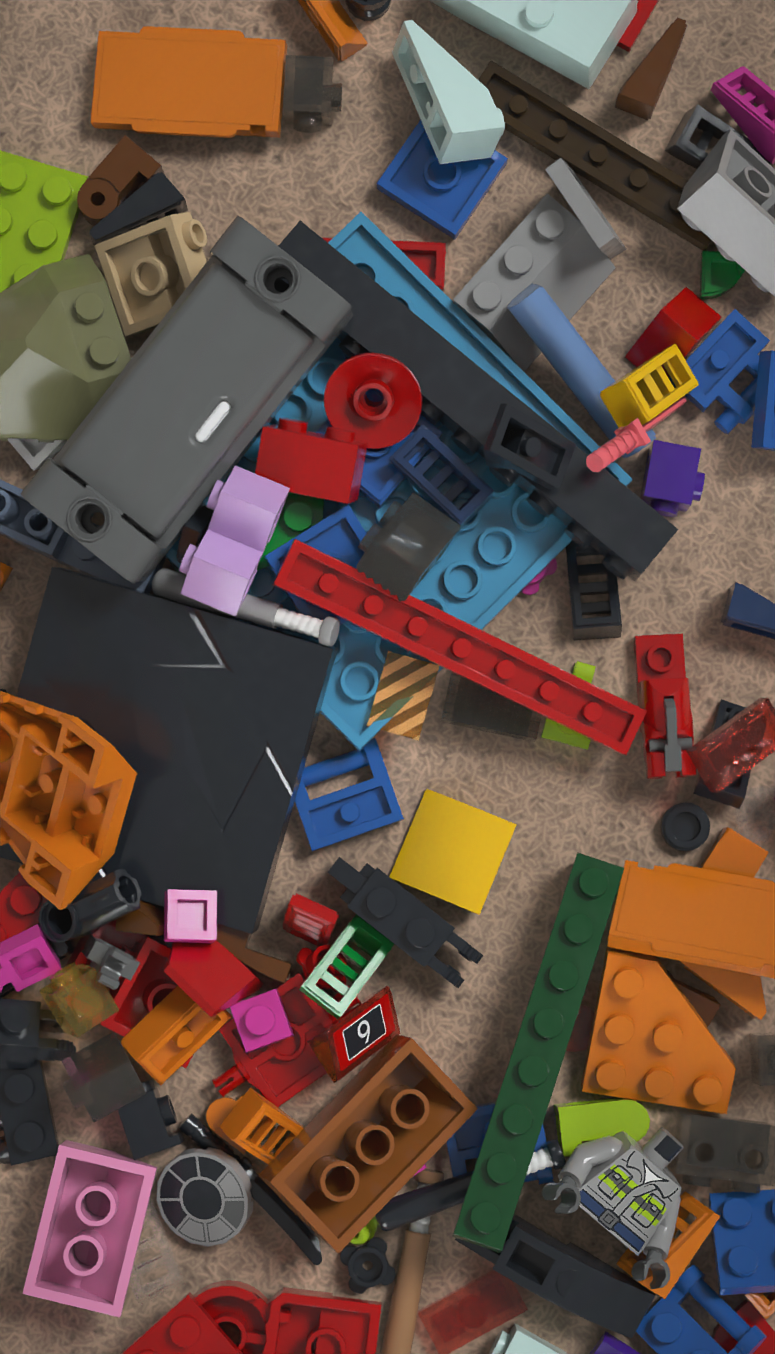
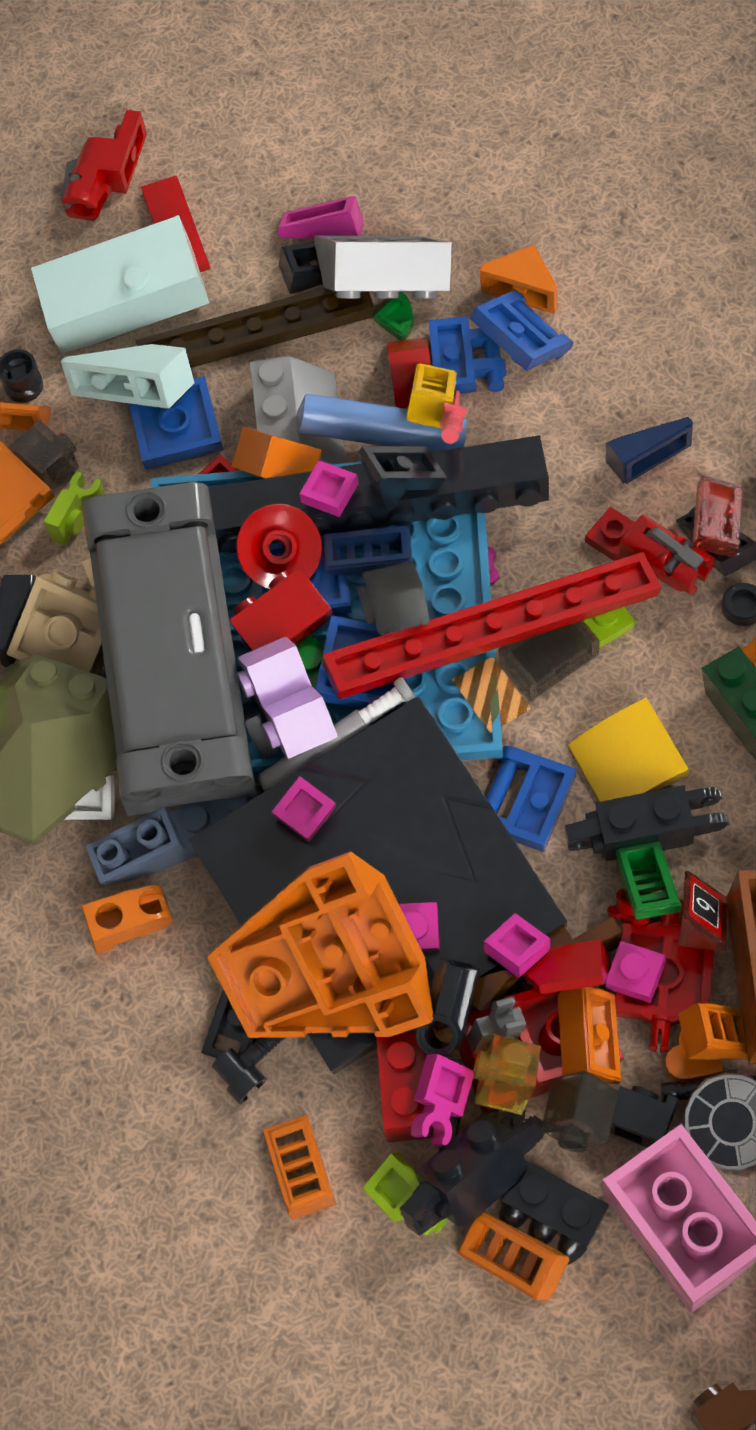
camera: 35 degrees left, 20 degrees down
(143, 819) = (423, 923): none -> dark pink plate
(151, 644) = (304, 809): none -> dark pink plate
(271, 165) = (66, 513): none -> lime plate
(309, 920) = (591, 878): red slope -> none
(460, 397) = (329, 488): none -> dark pink plate
(463, 310) = (273, 455): none -> orange slope
(585, 208) = (271, 343): light grey tile -> none
(598, 626) = (549, 555): black slope -> none
(644, 86) = (240, 266): reddish brown slope -> none
(672, 478) = (497, 424): dark purple brick -> none

